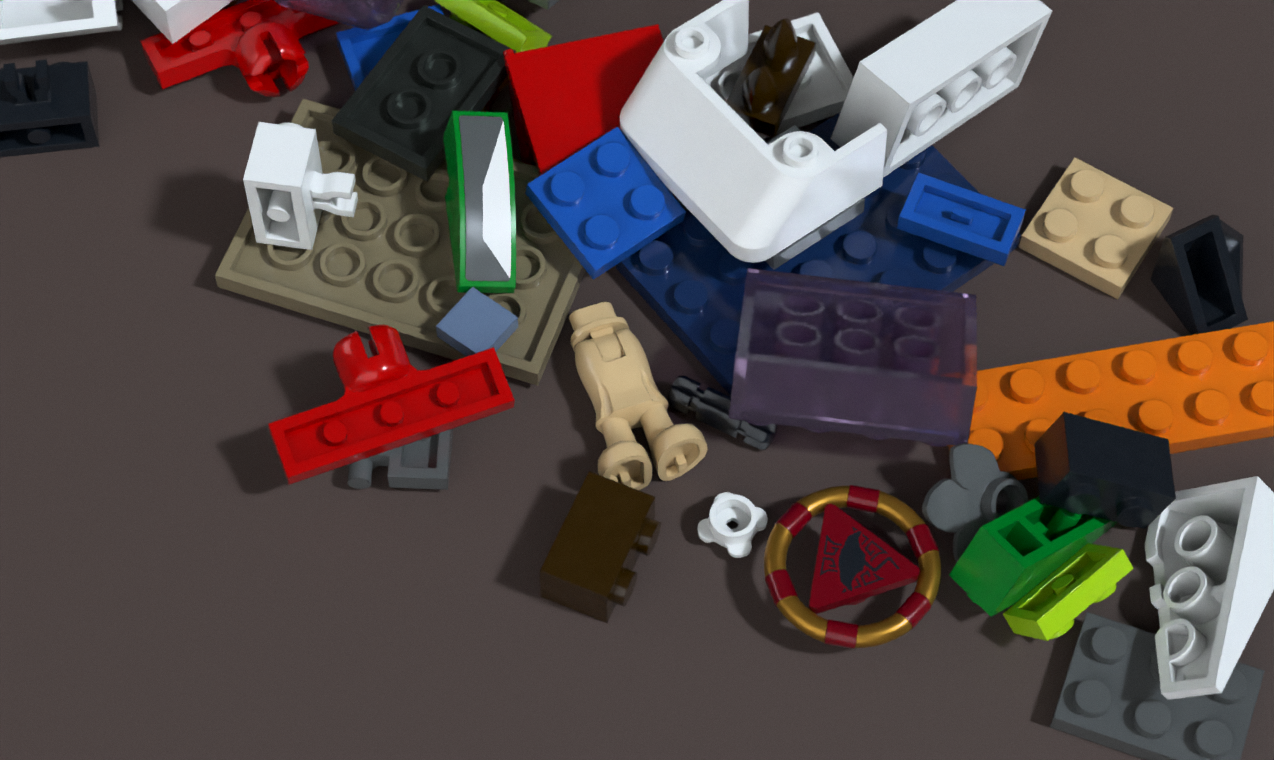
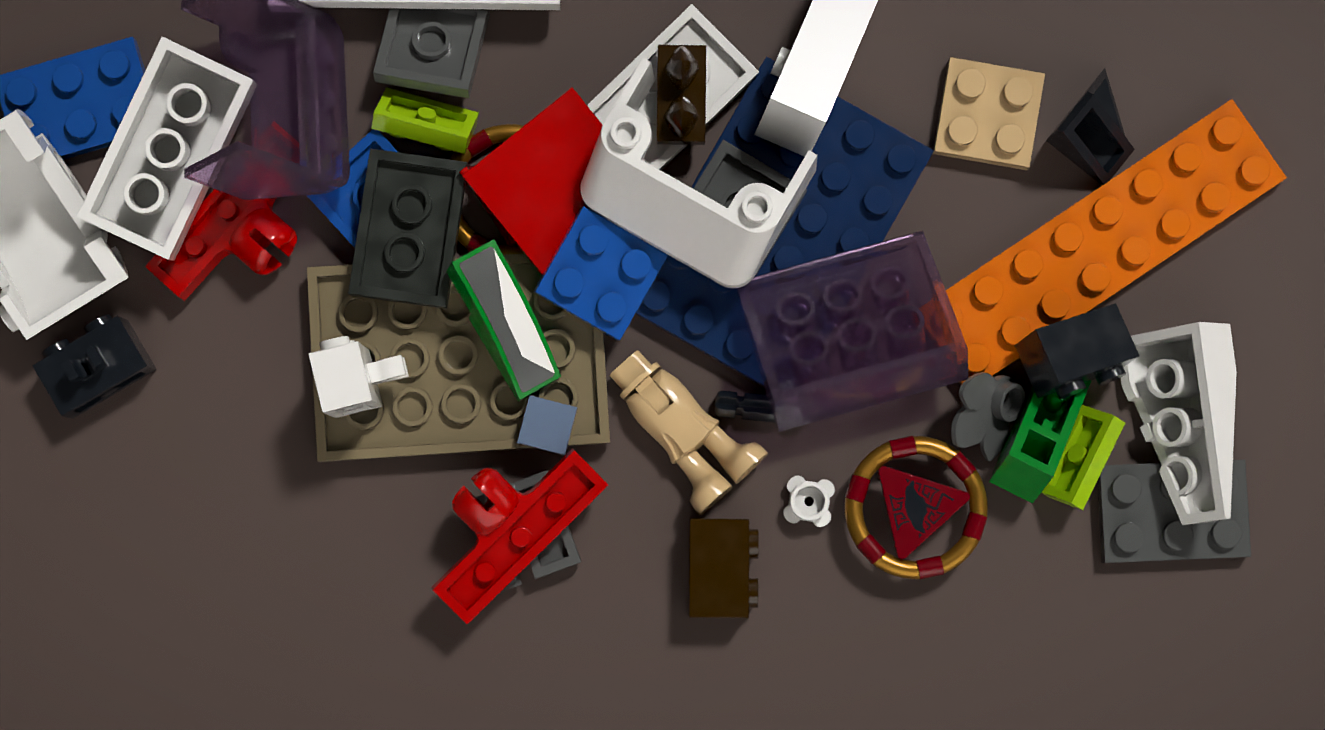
camera: 25 degrees left, 25 degrees up
(961, 219) = (887, 169): blue plate -> none

